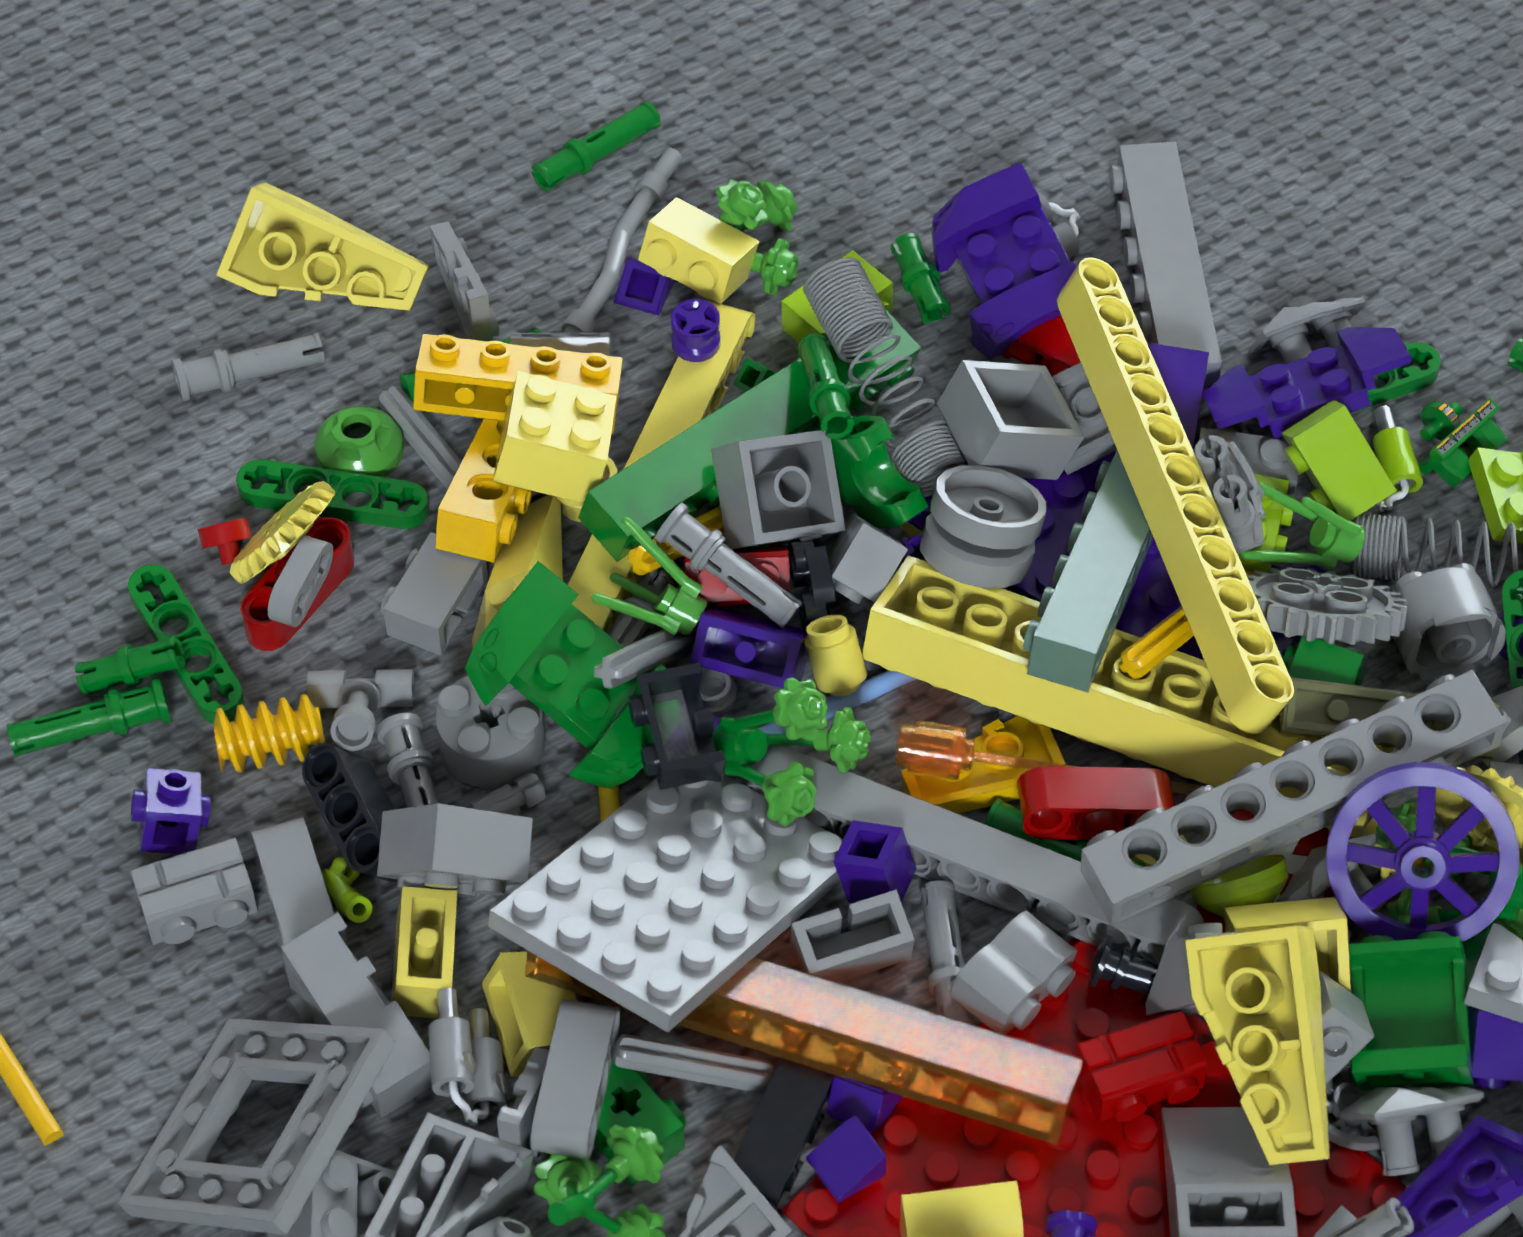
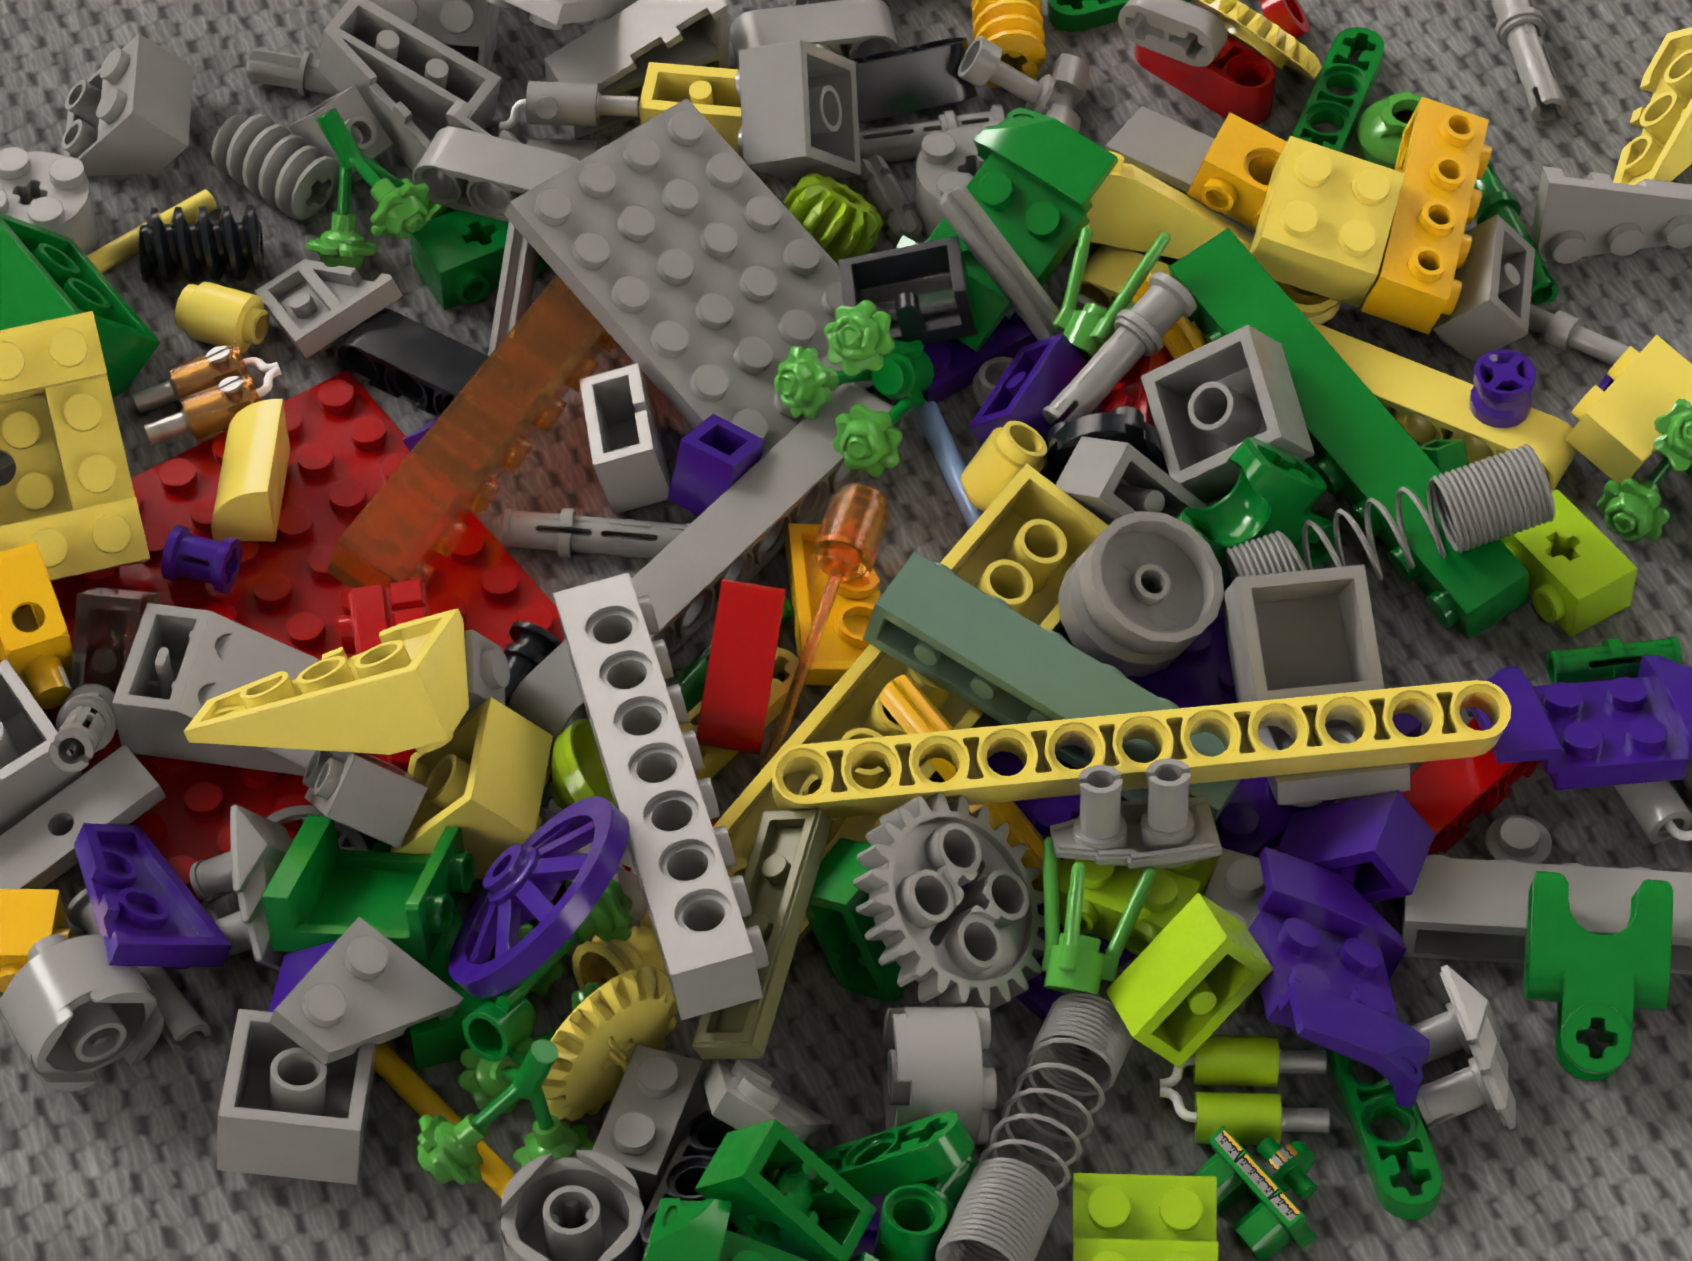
camera: 100 degrees right, 5 degrees down
(557, 823) = (834, 216): none -> lime gear
(827, 394) = (1332, 441): green pin -> none
(848, 1160) = (370, 410): dark purple slope -> none
(1014, 974) = (533, 555): light grey brick -> none
(1236, 254) = (1596, 975): none -> green piece

